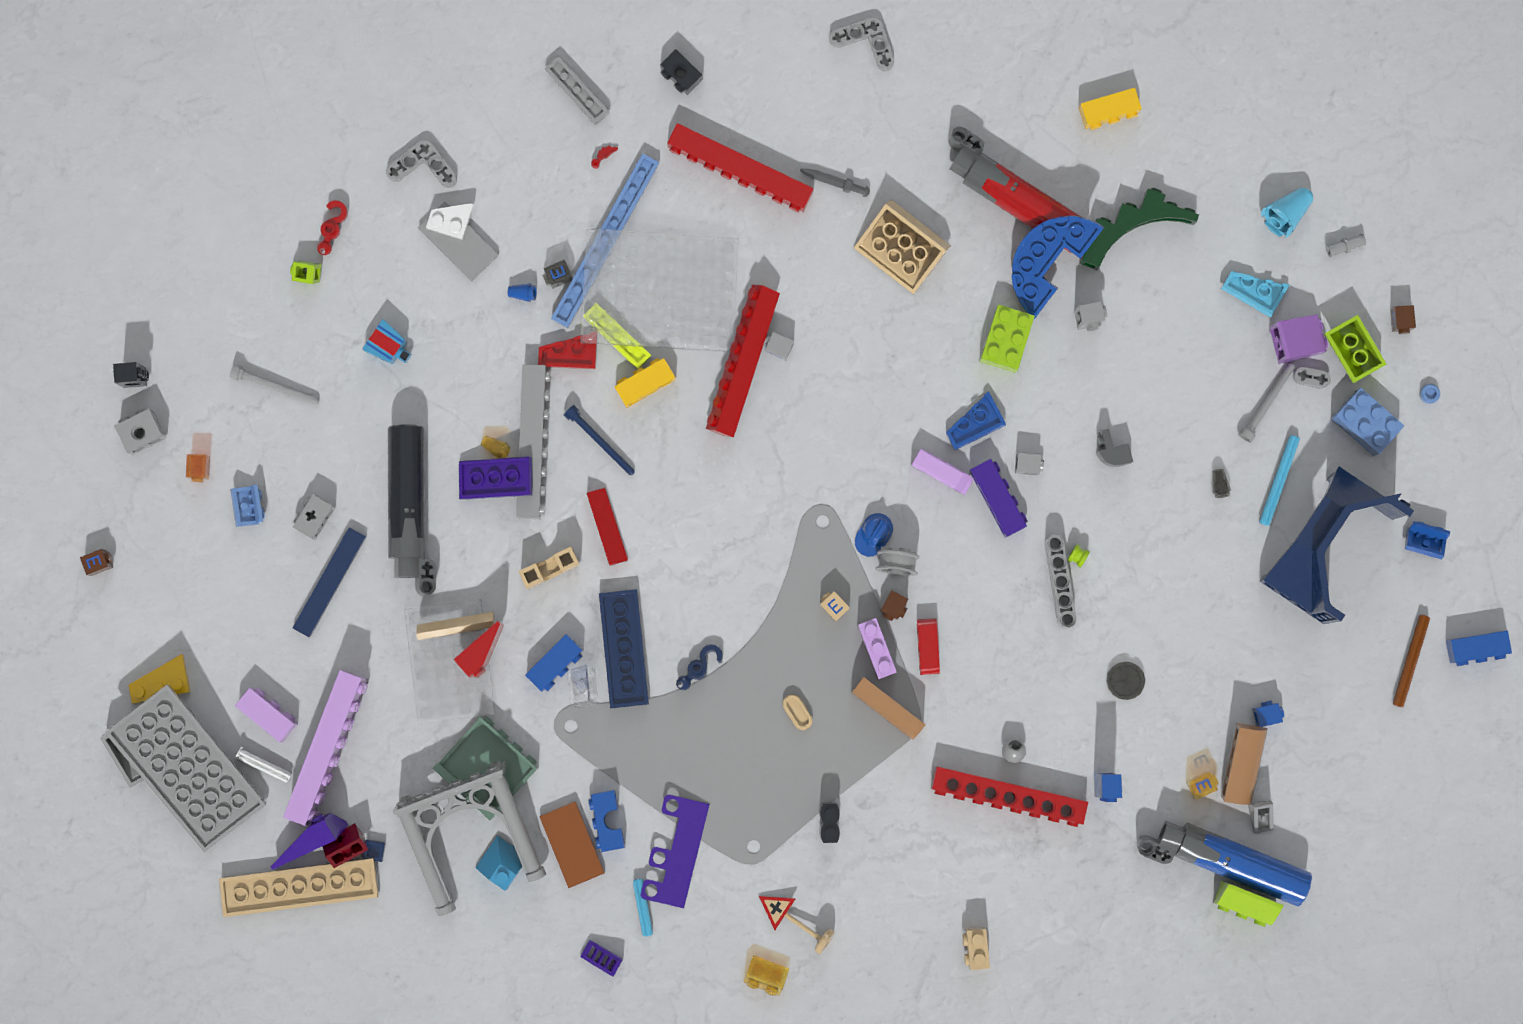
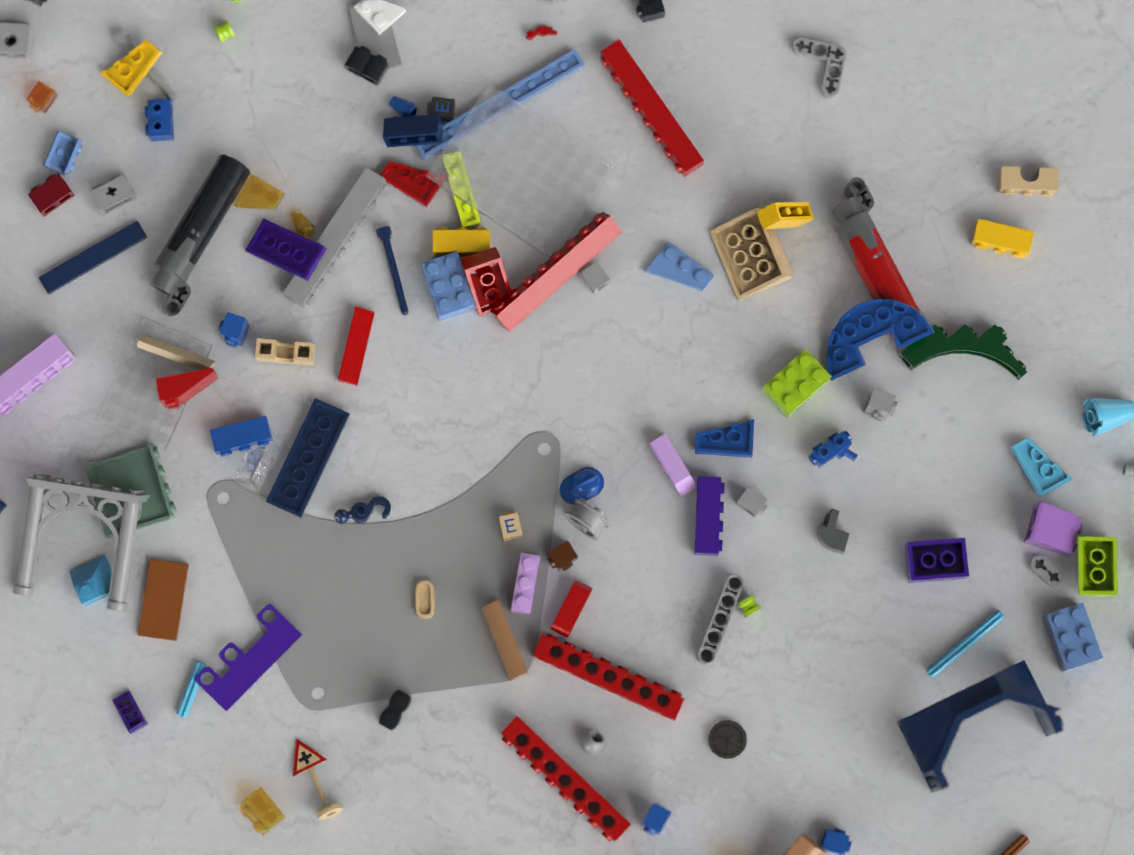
camera: 30 degrees right, 5 degrees down
(258, 548) = (50, 194): none -> dark red brick
(263, 395) = (131, 70): none -> yellow wing
(315, 426) = (160, 120): none -> blue brick
(323, 315) = (224, 31): none -> lime wheel
(387, 344) = (262, 85): torso -> none
(443, 442) = (259, 195): none -> clear yellow wing
(469, 273) = (366, 65): none -> black brick
(492, 575) = (234, 329): none -> blue brick
(544, 308) = (413, 130): none -> dark blue brick
(608, 838) = (209, 580): blue arch -> none
(656, 427) = (448, 286): none -> medium blue brick
(686, 403) = (486, 279): none -> red slope
(846, 185) = (735, 175): dark grey sword -> none
(847, 295) = (679, 267): none -> medium blue wing
(913, 197) = (785, 215): none -> yellow brick
(1063, 684) = (579, 670): none -> red brick
(1073, 373) = (835, 447): none -> blue brick
(1089, 54) = (1012, 182): none -> tan arch
(1215, 423) = (936, 560): none -> dark purple brick
(1220, 484) = (910, 617): clear smoke cone -> none
(1248, 432) = (961, 586): light grey piece -> none
(1426, 539) = (1066, 770): blue bracket -> none

